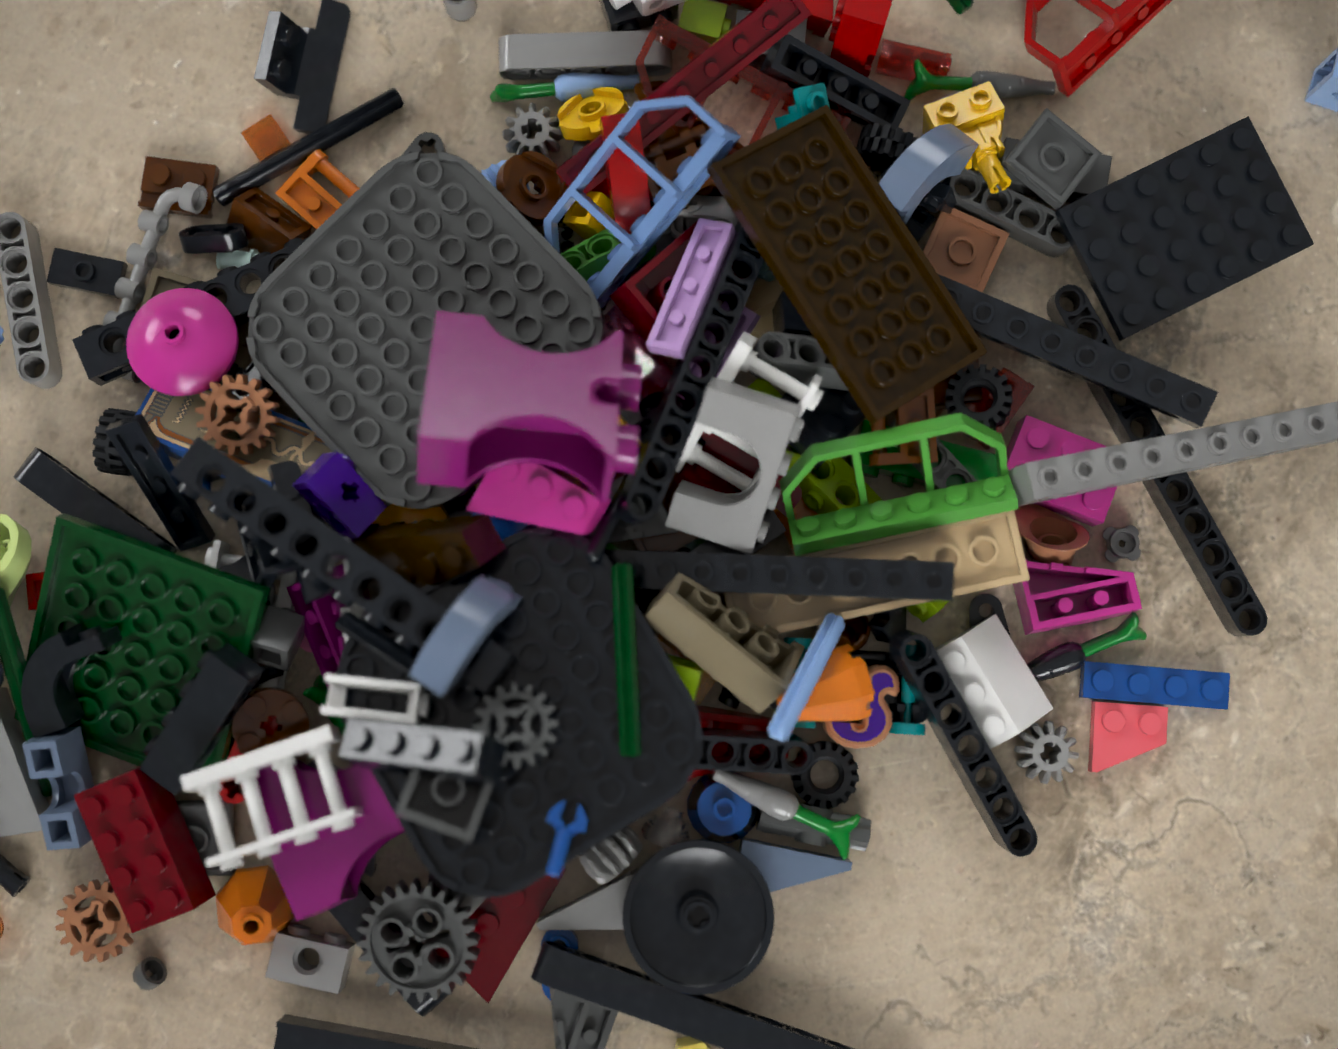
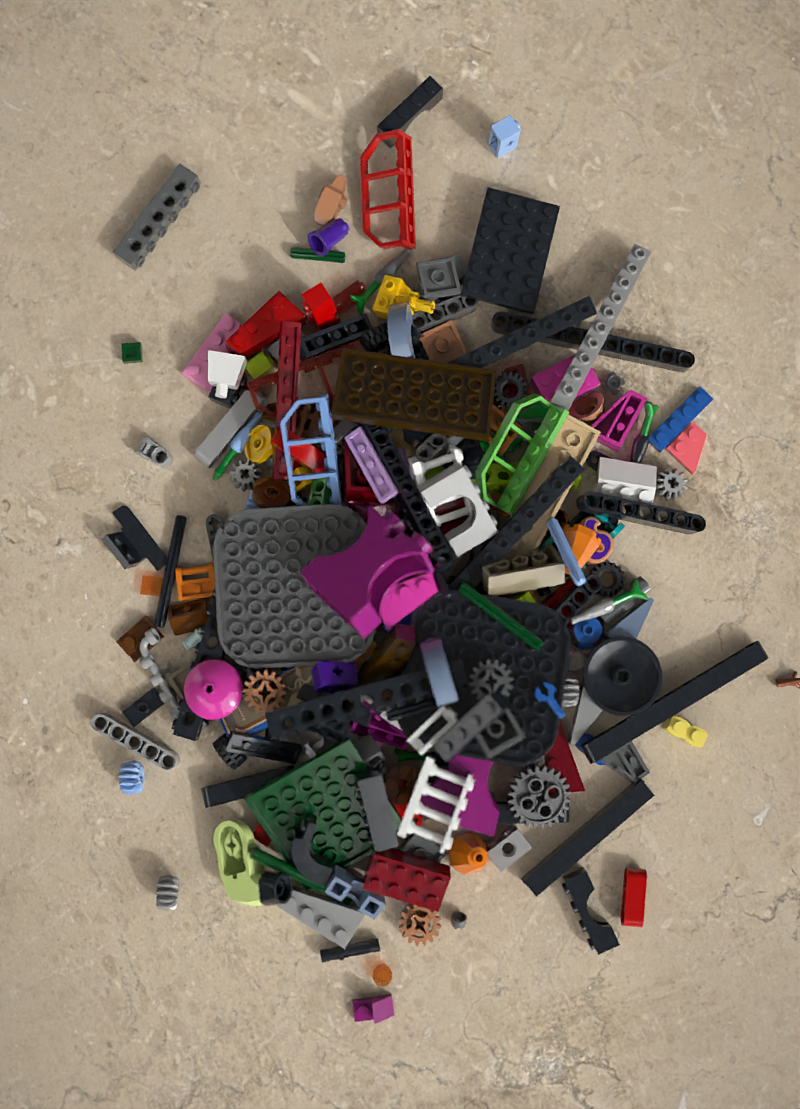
camera: 50 degrees left, 0 degrees up
(213, 238) = (176, 642): black beam -> none
(806, 101) = (333, 354): teal bracket -> none
(887, 623) = (569, 503): black piece -> none

